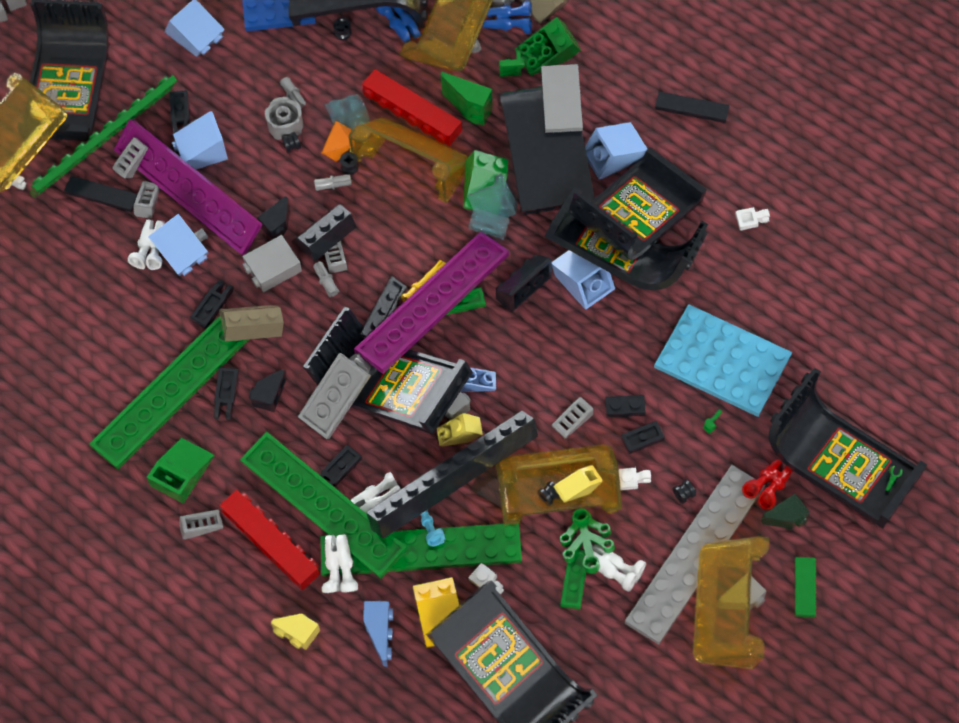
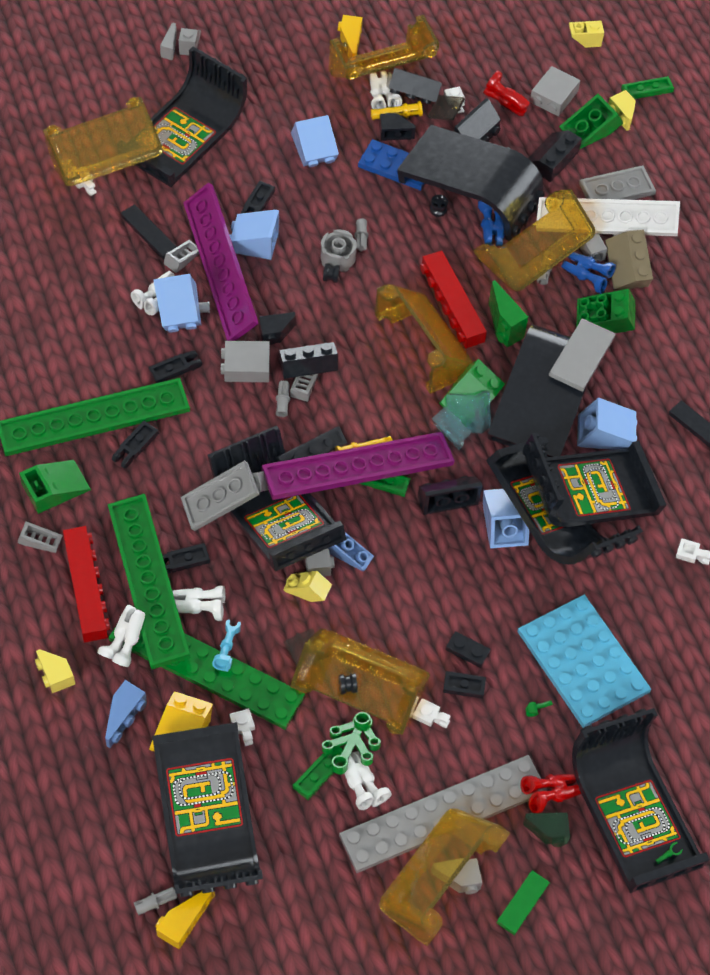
camera: 25 degrees right, 5 degrees down
(97, 139) = (175, 186): green plate -> none
(125, 169) = (179, 218): light grey slope -> none
(251, 322) = (194, 398): dark tan slope -> none
(268, 391) = (171, 462): black slope -> none
(332, 182) = (343, 323): light grey axle -> none
(337, 142) = (367, 293): orange slope -> none
(348, 111) = (394, 273): clear light blue bracket -> none
(352, 165) = (370, 320): black wheel -> none
(452, 474) = (272, 616): black brick -> none
(511, 67) = (563, 311): green bracket -> none
(578, 484) = (376, 689): light yellow slope -> none
(579, 403) = (413, 626): light grey slope -> none
(684, 491) = (469, 752): black wheel -> none

